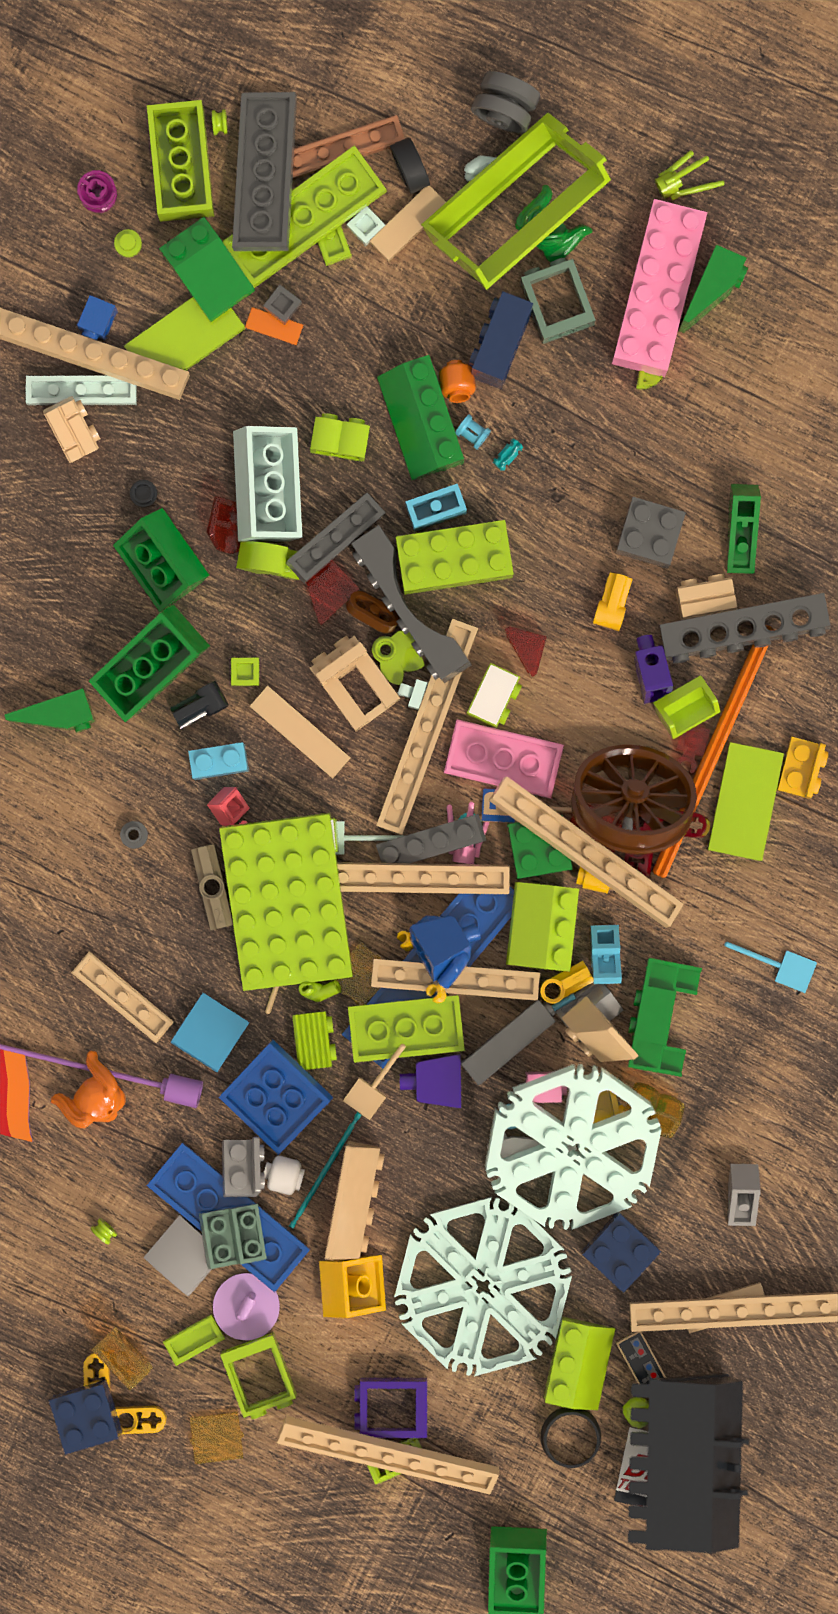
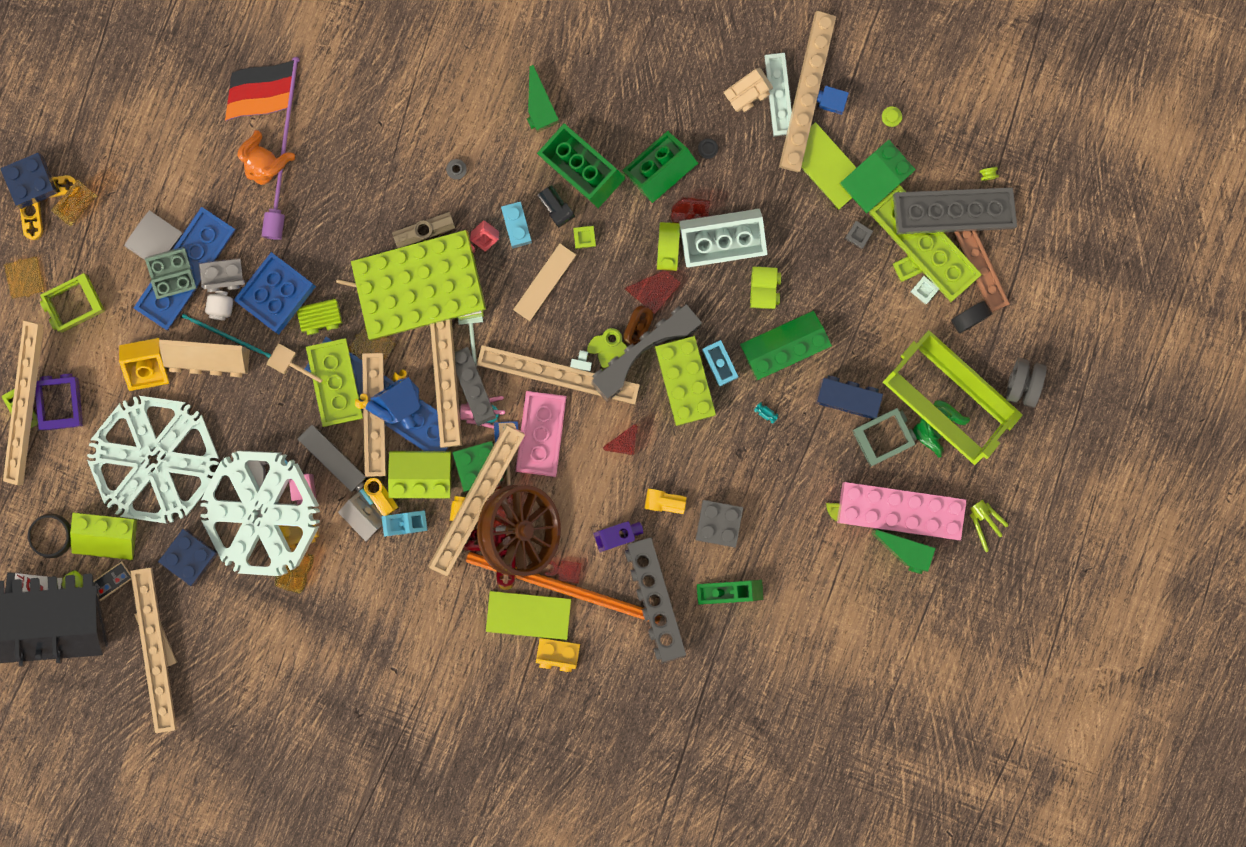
camera: 85 degrees right, 0 degrees up
(97, 191) = (927, 89): magenta wheel -> none
(104, 1231) = (165, 179): lime bush -> none
(122, 997) = (337, 174): tan tile -> none
(180, 160) = (956, 148): lime brick -> none
(193, 1339) = (93, 253): lime tile -> none
(209, 1032) = (317, 240): dark azure slope -> none
(245, 1307) = (120, 288): lavender shield -> none
(267, 324) = (843, 225): orange sticker -> none
(319, 992) = (355, 317): lime arm -> none
(334, 666) = (603, 310): tan brick -> none
(335, 538) = (689, 292): dark grey plate -> none
(406, 223) = (929, 320): tan tile -> none
(436, 1081) = (299, 409): dark purple torso -> none
(457, 381) = (815, 369): orange head -> none
(469, 423) = (779, 385): medium azure bush -> none
(476, 166) = (978, 367): light aqua arm -> none
(493, 696) = (585, 421): white brick -> none
(596, 1033) = (345, 522): tan slope -> none
(654, 1015) = (363, 563): green bracket -> none
(687, 707) = (592, 564): lime panel -> none
(705, 598) = (675, 570): tan brick -> none
(743, 1194) = (239, 643): light grey slope -> none
(793, 971) = (408, 664): medium azure piece -> none

